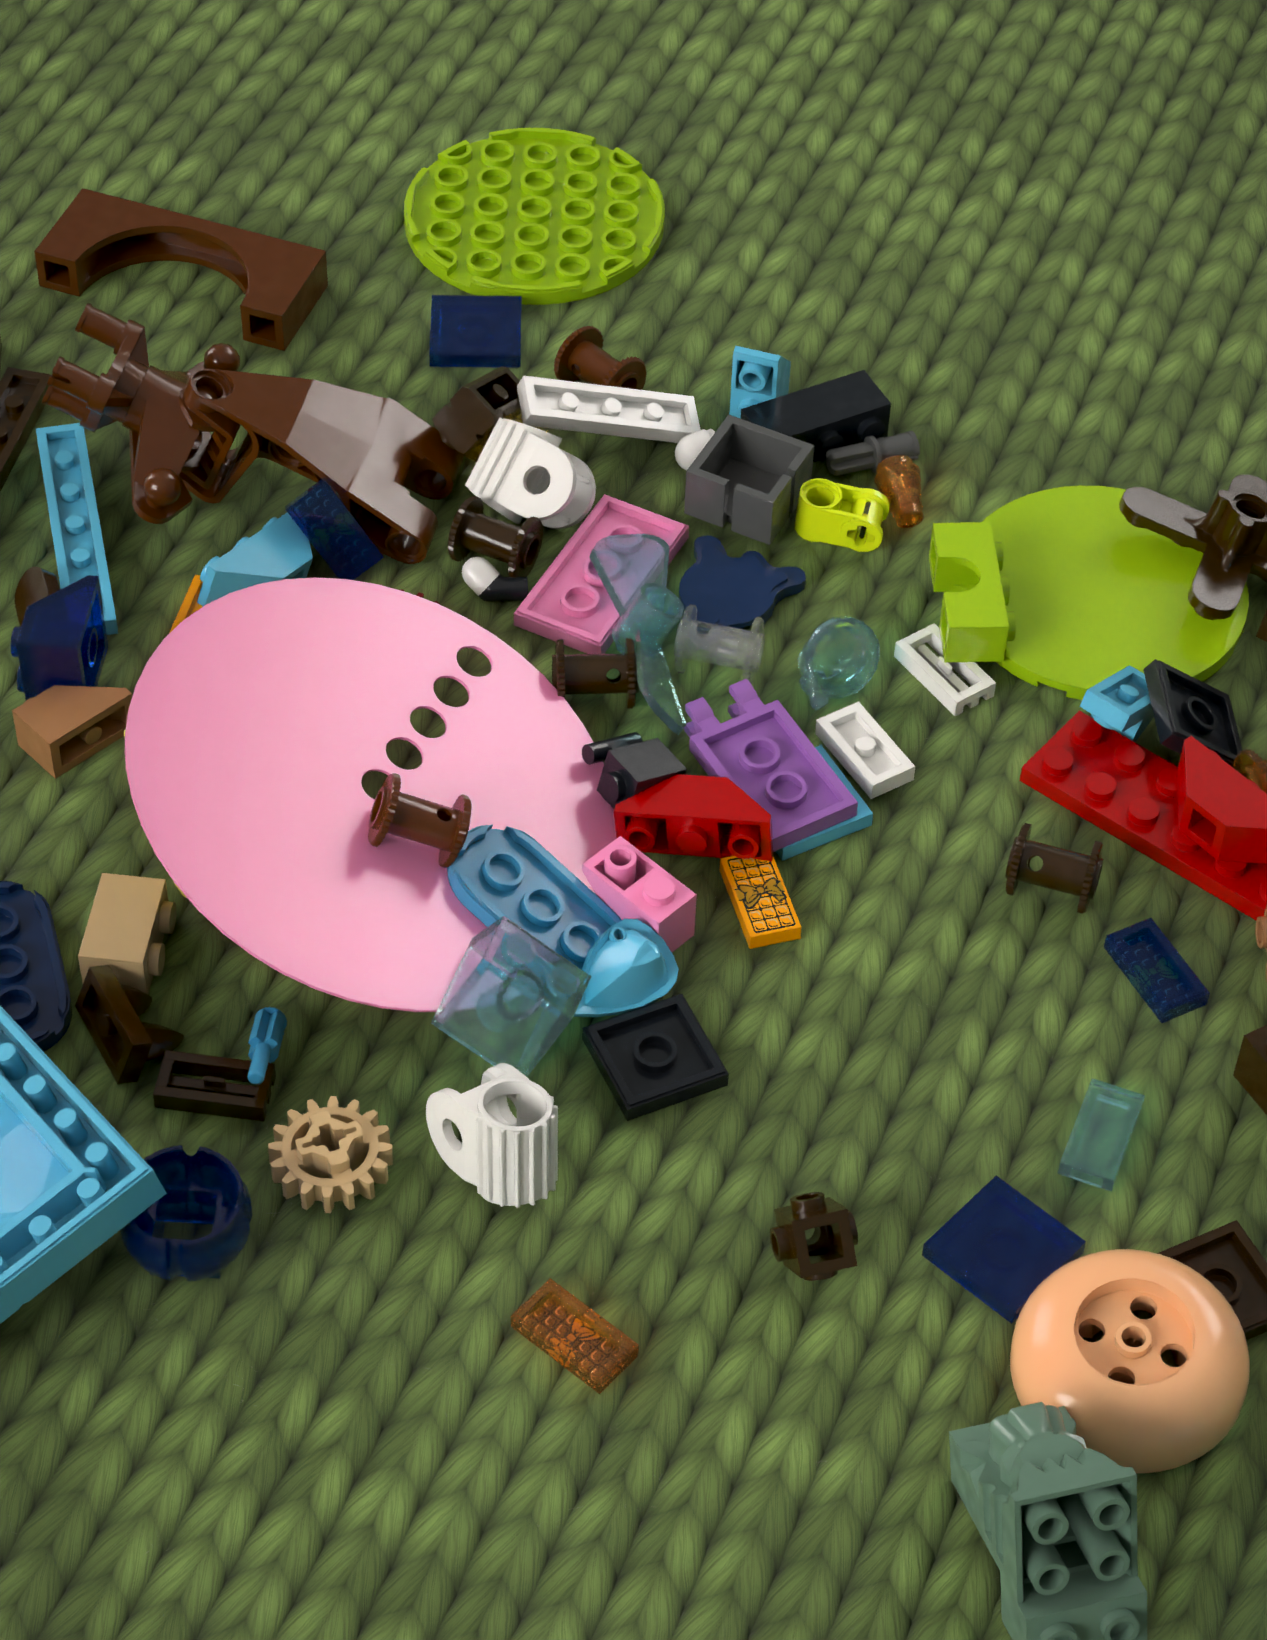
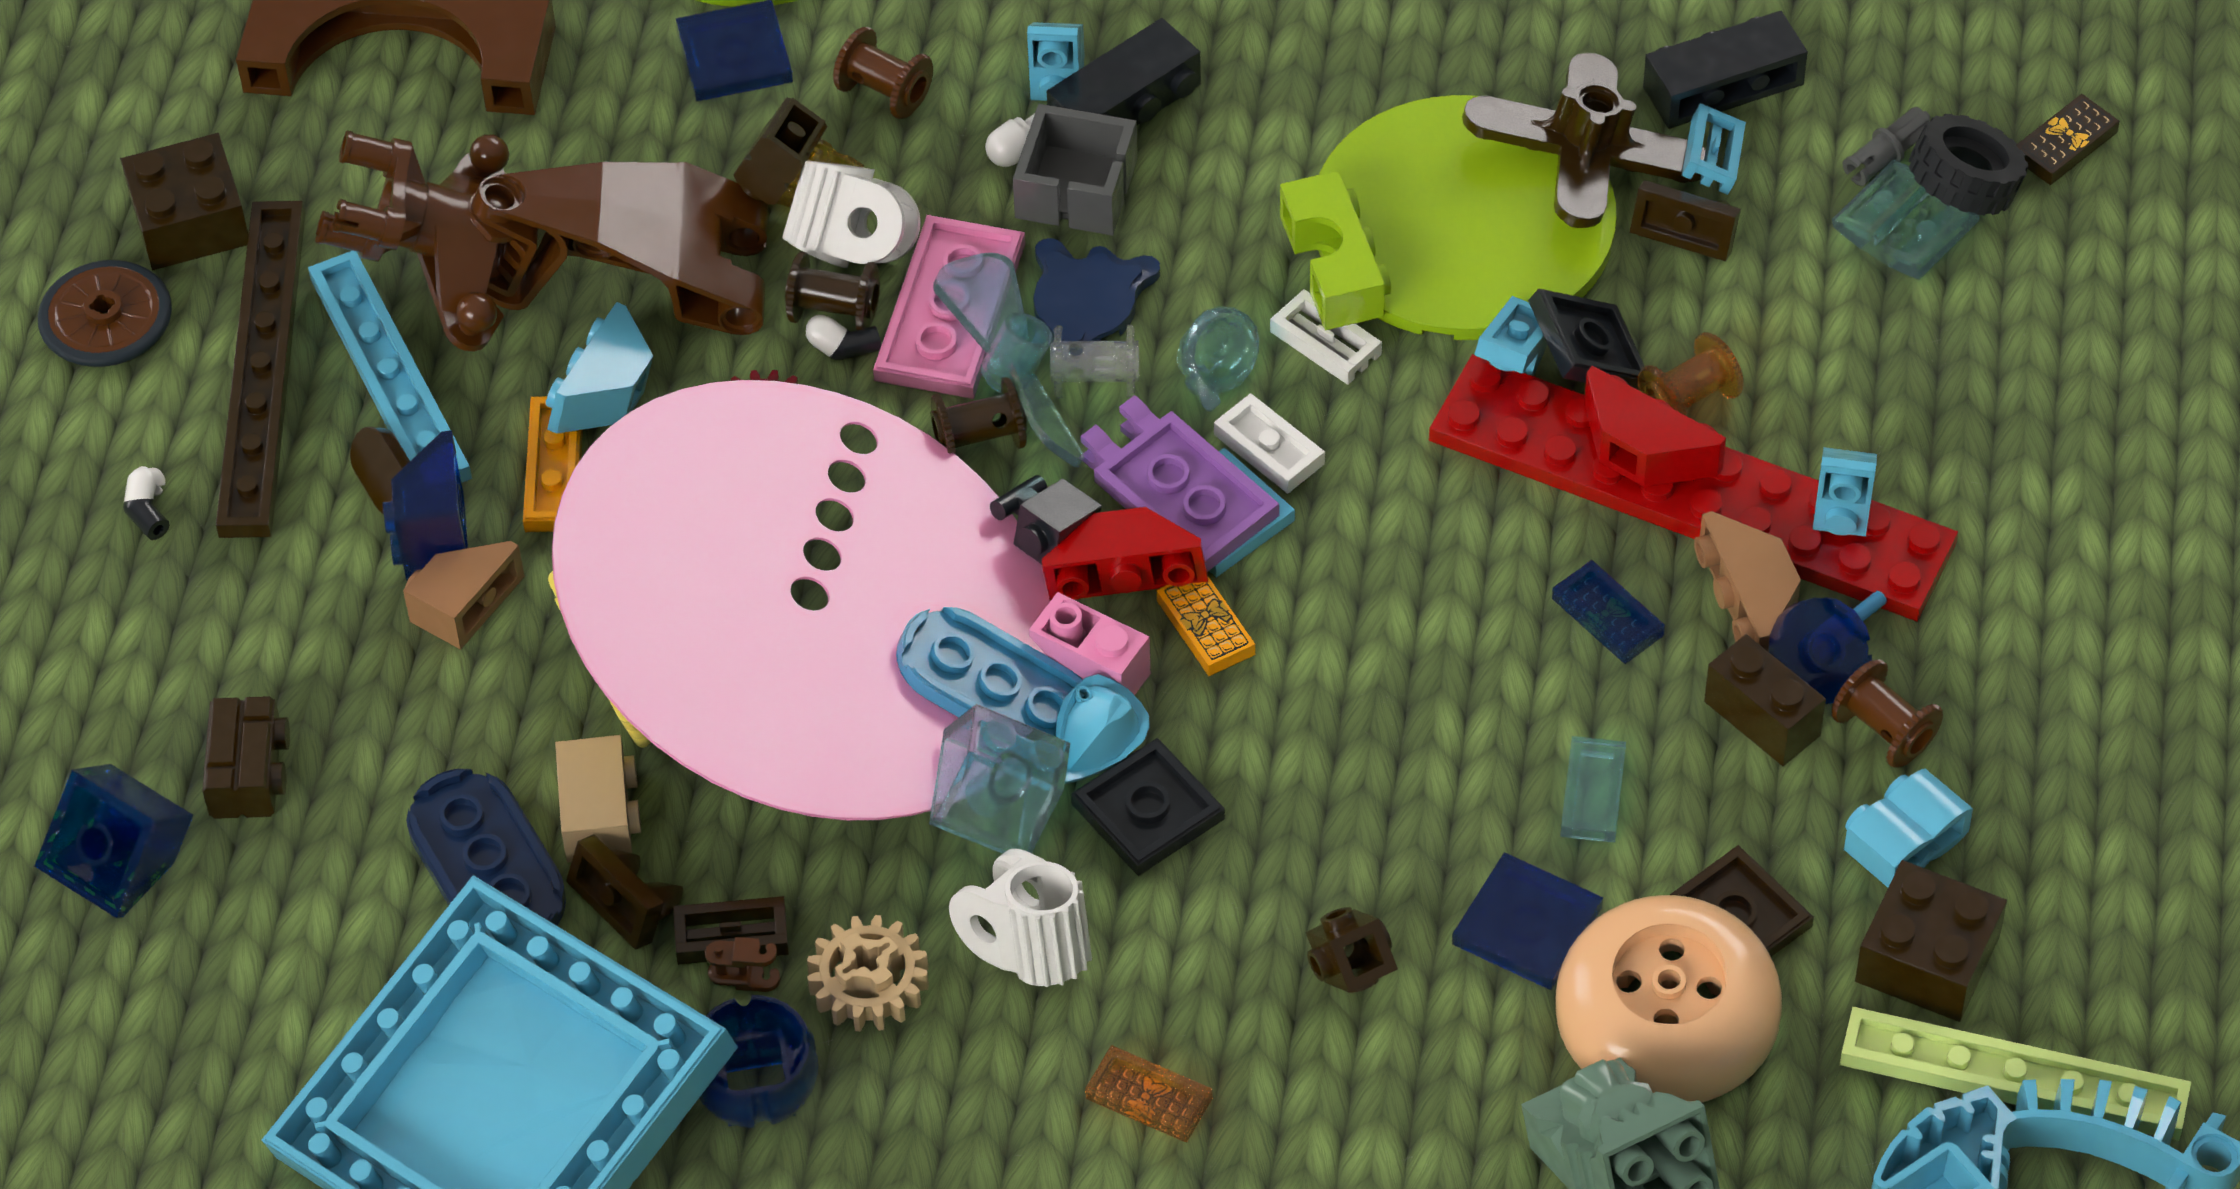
camera: 10 degrees left, 5 degrees up
(209, 1119) = (741, 964): none -> reddish brown piece
(265, 1041) = (769, 876): dark azure axle -> none
(334, 531) = (666, 322): clear blue tile -> none
(419, 820) = (863, 623): reddish brown hose -> none
(606, 409) = (907, 121): white plate -> none
(836, 514) = (1173, 187): neon yellow piece -> none
(871, 453) = (1192, 108): dark grey axle -> none
(901, 484) = (1232, 144): clear orange cone -> none
(1061, 868) = (1496, 530): dark brown hose -> none

